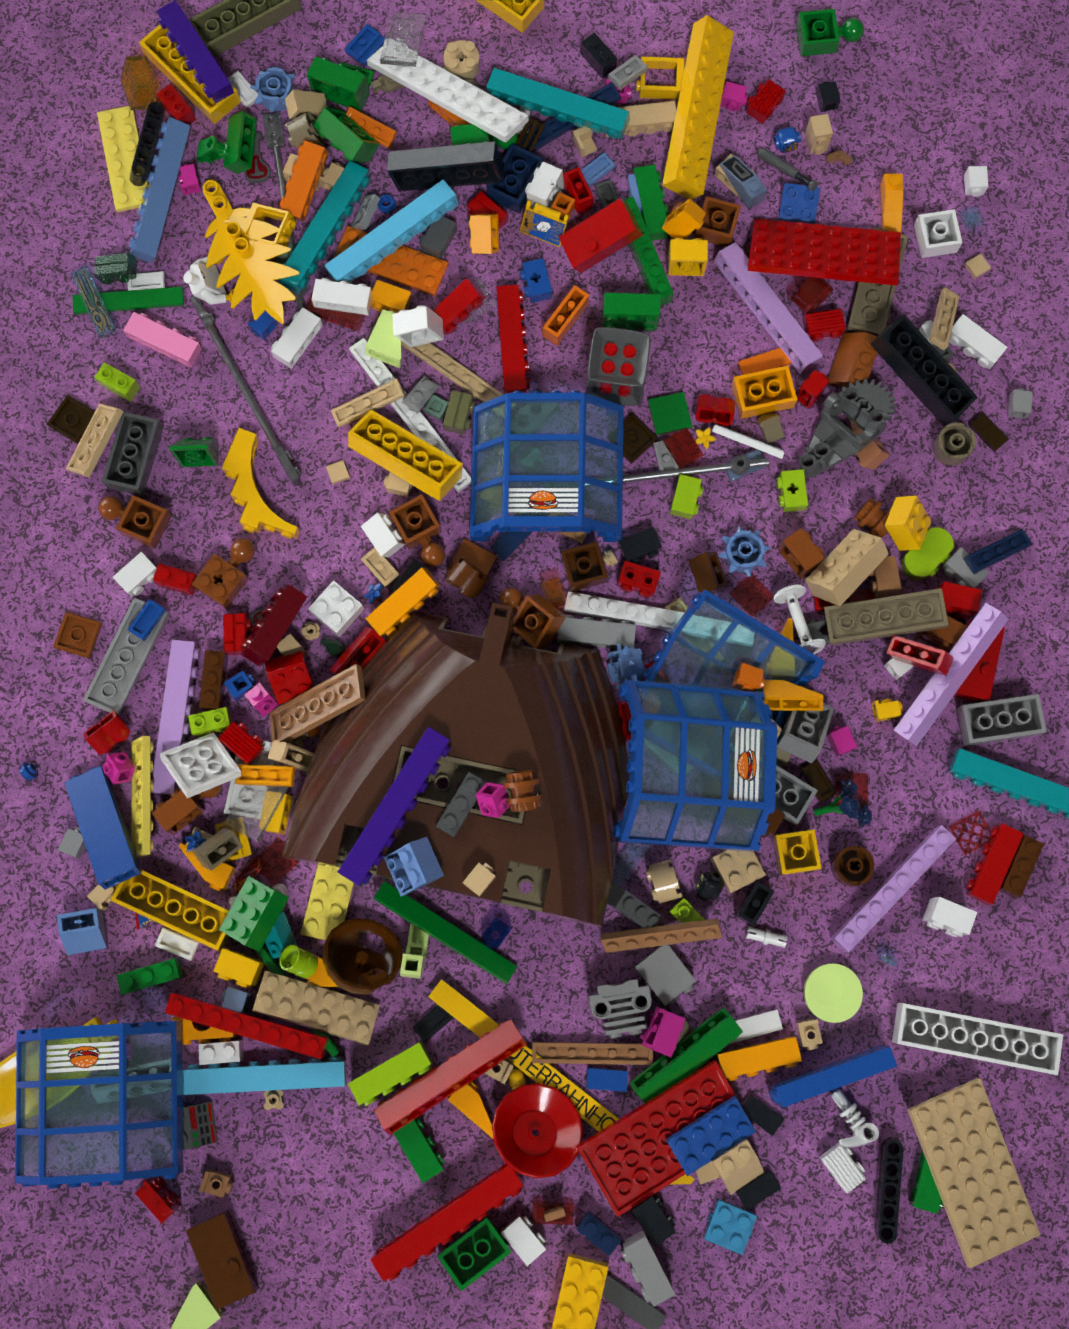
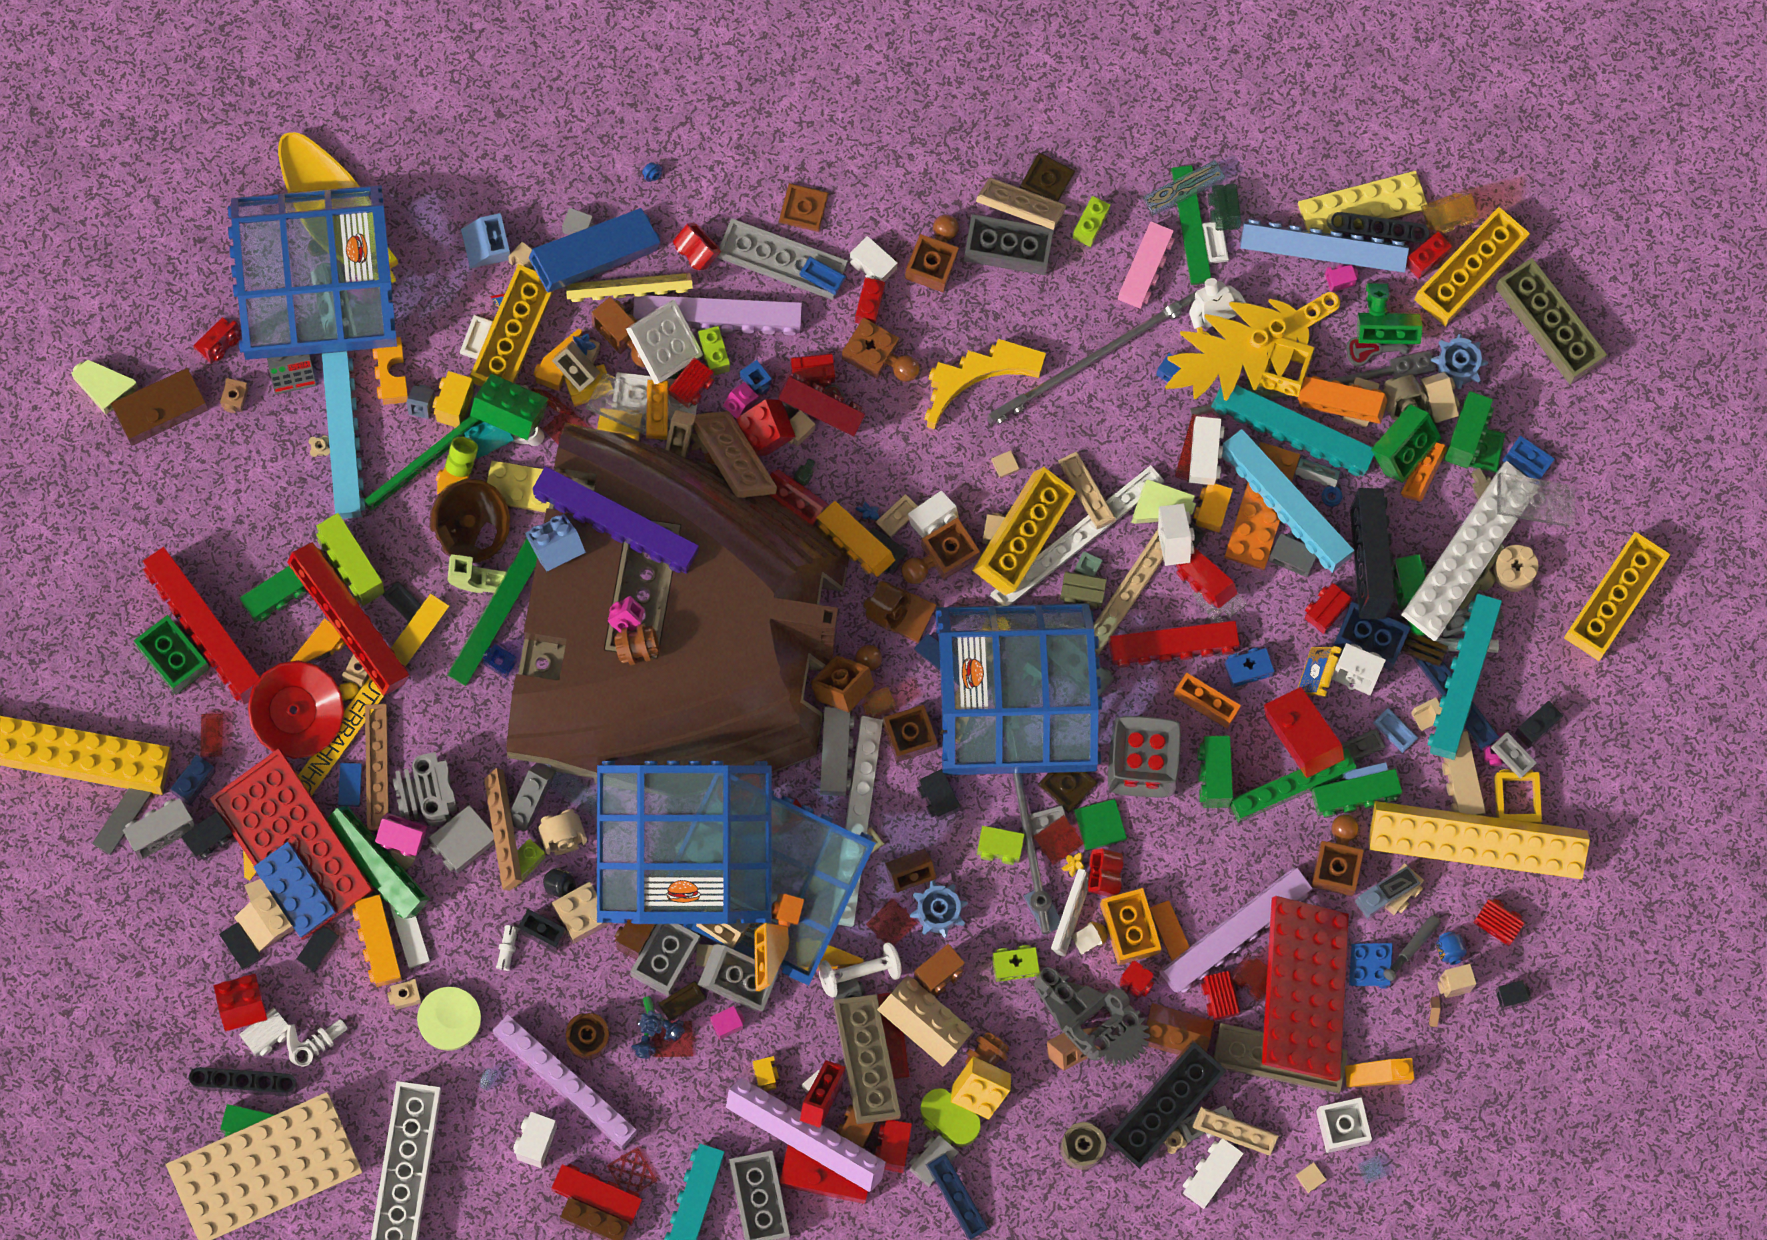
camera: 80 degrees right, 5 degrees down
(119, 768) = (659, 261): dark pink brick -> none
(150, 976) = (441, 312): green brick -> none
(195, 52) = (1487, 268): dark purple brick -> none
(196, 452) = (1016, 309): green slope -> none
(213, 680) = (764, 349): reddish brown brick -> none
(221, 1052) = (366, 389): white brick -> none
(245, 93) = (1462, 324): white tile -> none
(247, 1025) = (393, 410): red brick -> none
(296, 337) = (1159, 408): white brick -> none
(310, 636) = (821, 442): tan plate -> none
(316, 1008) = (414, 479): tan plate -> none
(330, 176) = (1359, 432): tan brick -> none
(336, 608) = (846, 472): white brick -> none
(420, 394) = (1101, 547): light grey plate -> none
(460, 805) = (619, 585): dark grey plate -> none
(480, 878) = (545, 607): tan brick -> none
(484, 233) = (1297, 604): light orange brick -> none
(524, 1239) = (185, 705): white brick -> none
(554, 1213) = (212, 734): medium nougat tile -> none
(564, 204) = (1339, 691): orange brick -> none
(578, 189) = (1363, 707): red brick -> none
(609, 558) = (923, 762): tan plate -> none
(626, 665) = (797, 782): medium blue brick -> none
(638, 579) = (900, 796): red brick -> none
(684, 220) = (1328, 824): light orange brick -> none
(687, 257) = (1288, 833): yellow brick -> none
(730, 1226) = (202, 917): dark azure plate -> none
(734, 96) = (1501, 884): dark pink brick -> none
(796, 852) = (599, 975): yellow brick -> none
(818, 1191) = (240, 1002): none -> red brick
(820, 33) = (1584, 992): green brick -> none
(832, 1076) = (360, 1015): blue brick -> none
(886, 579) = (916, 1068): medium nougat brick -> none
(976, 180) = (1416, 1171): white brick -> none
(988, 432) = (1103, 1190): dark brown tile -> none
(1020, 403) = (1140, 1224): light grey brick -> none

